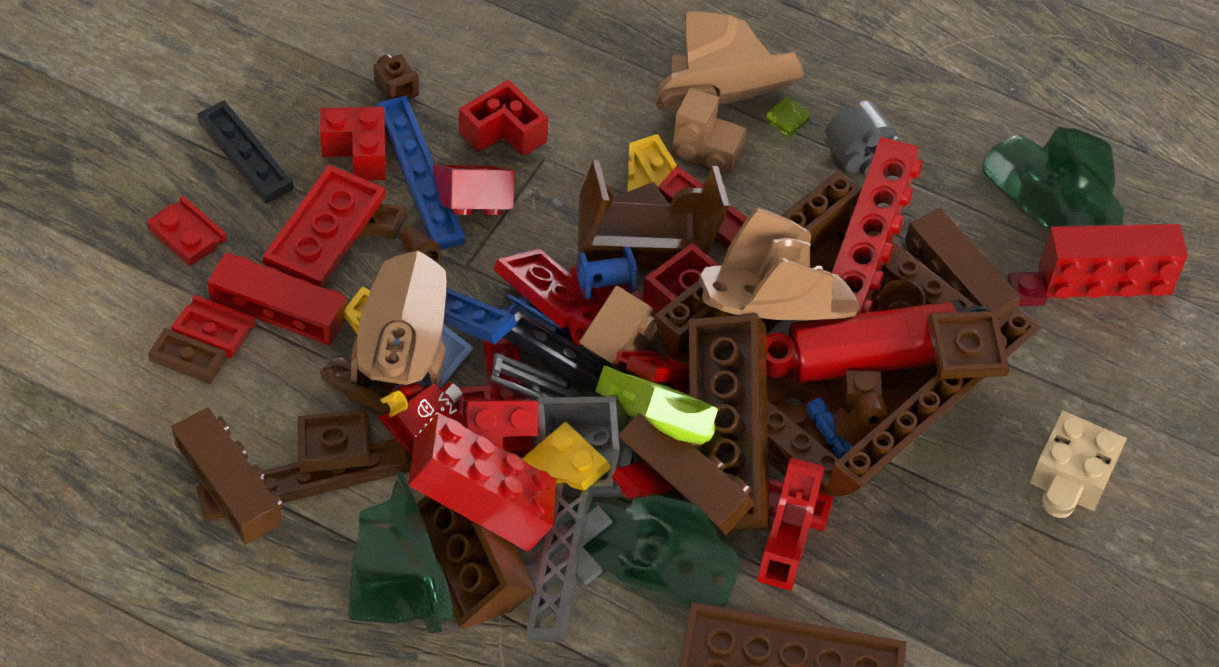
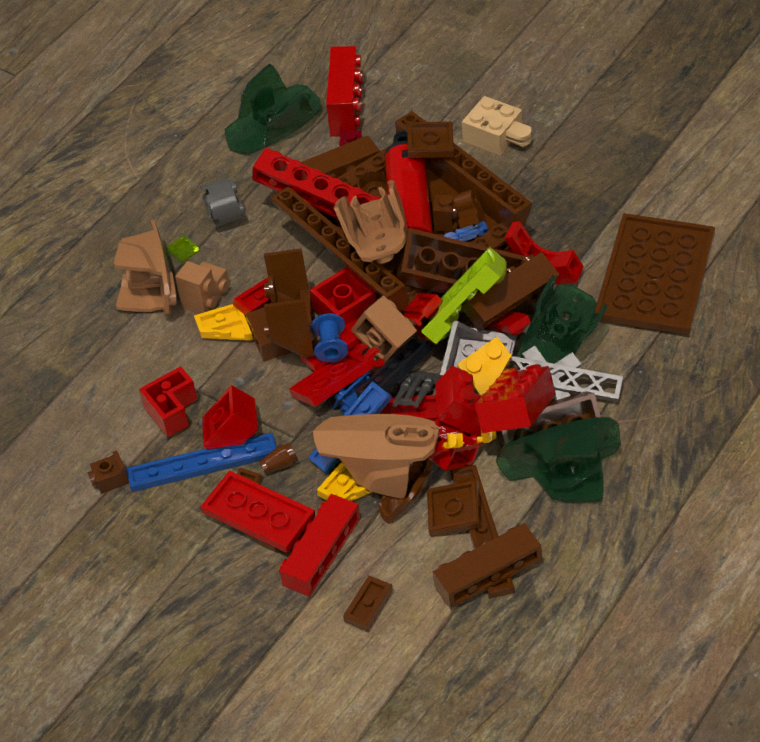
camera: 75 degrees left, 5 degrees down
(186, 231) = (240, 612): red plate -> none
(214, 324) = (340, 586): red plate -> none
(245, 151) = (166, 571): black plate -> none
(357, 134) = (171, 489): red brick -> none

